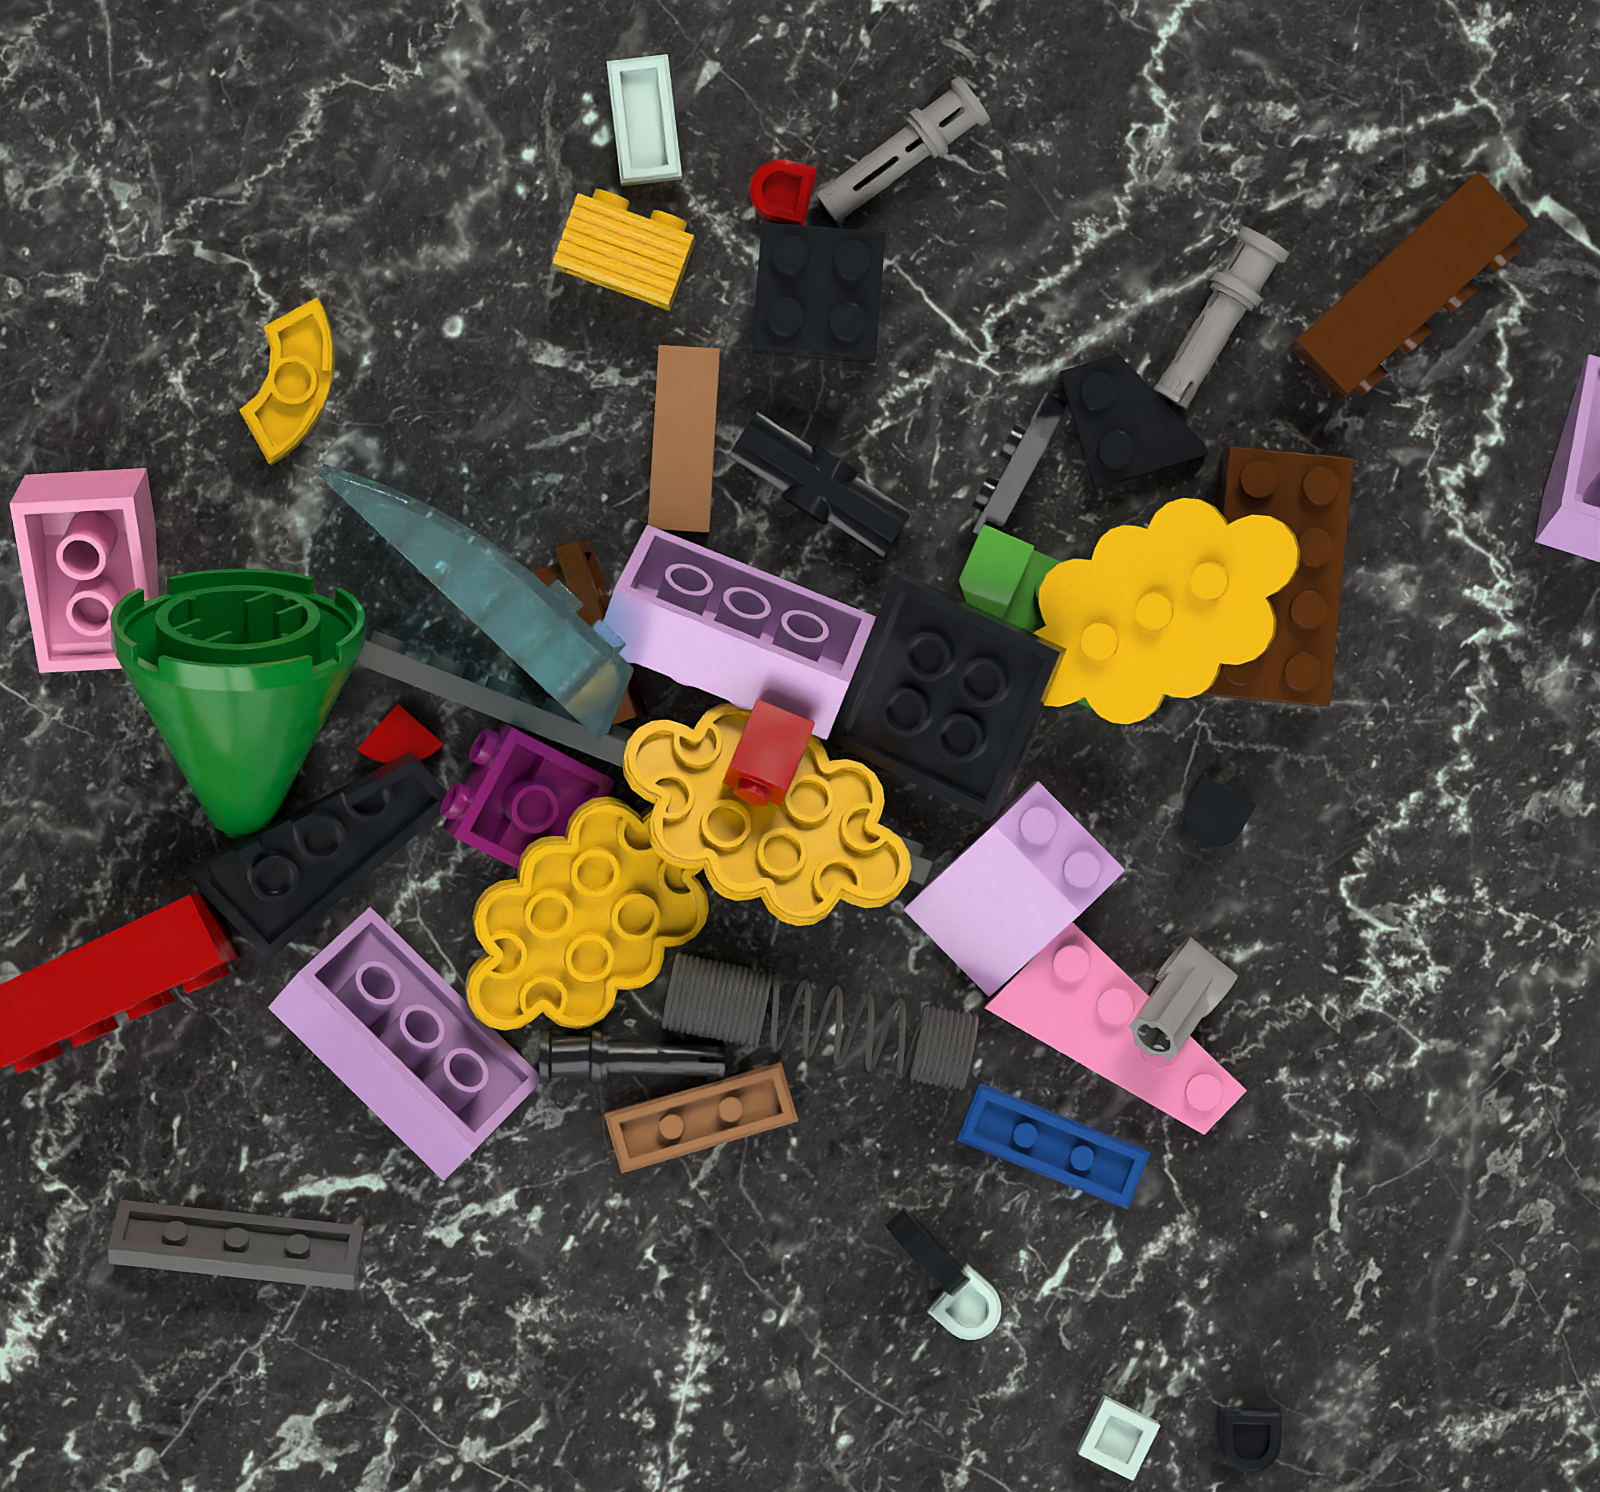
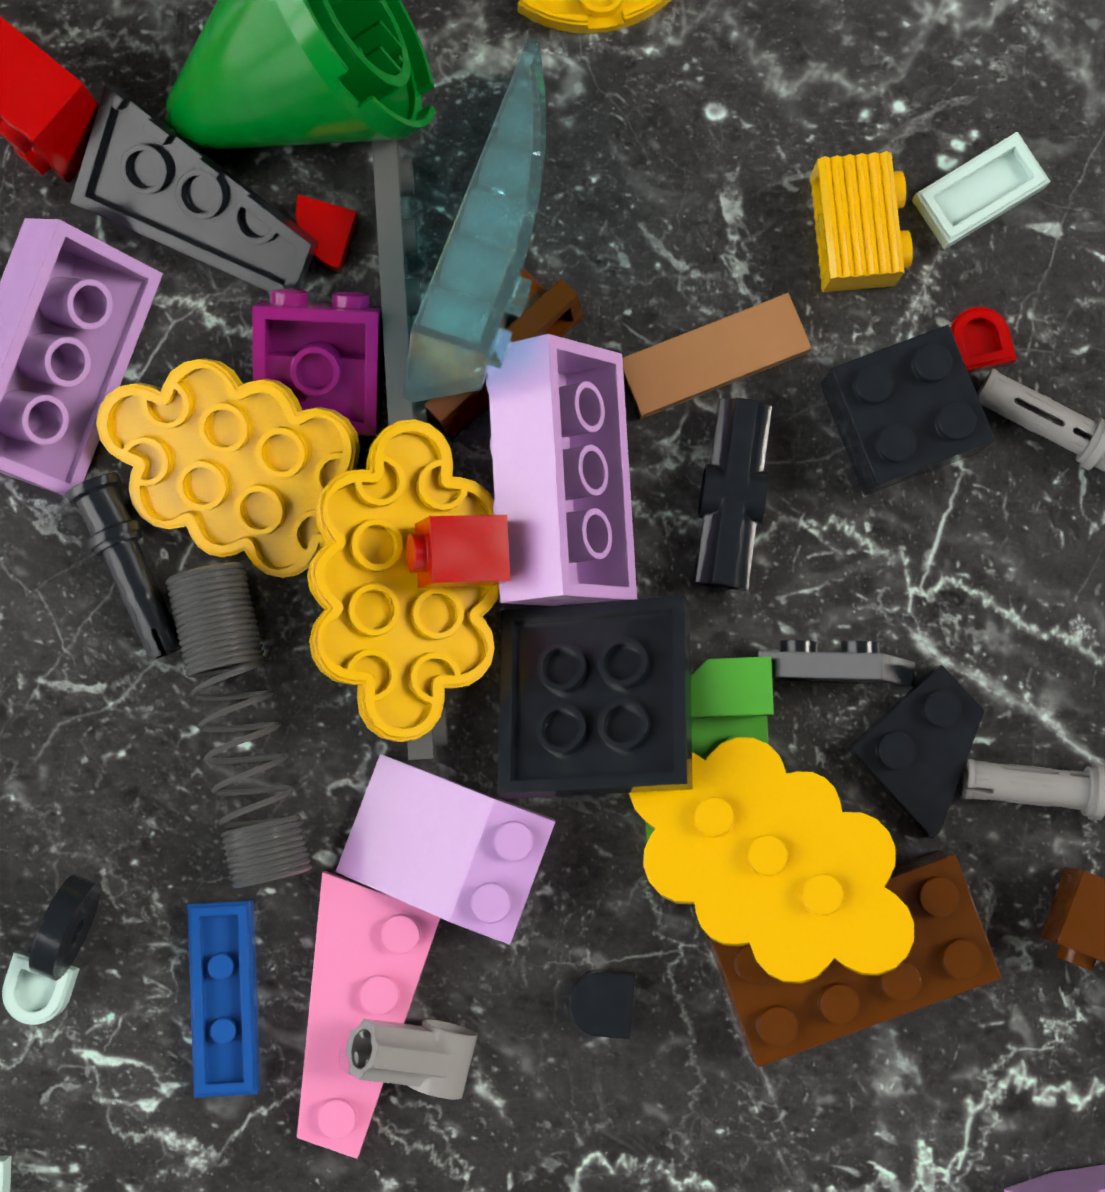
camera: 65 degrees right, 5 degrees down
(701, 1117) = (104, 658): medium nougat tile -> none

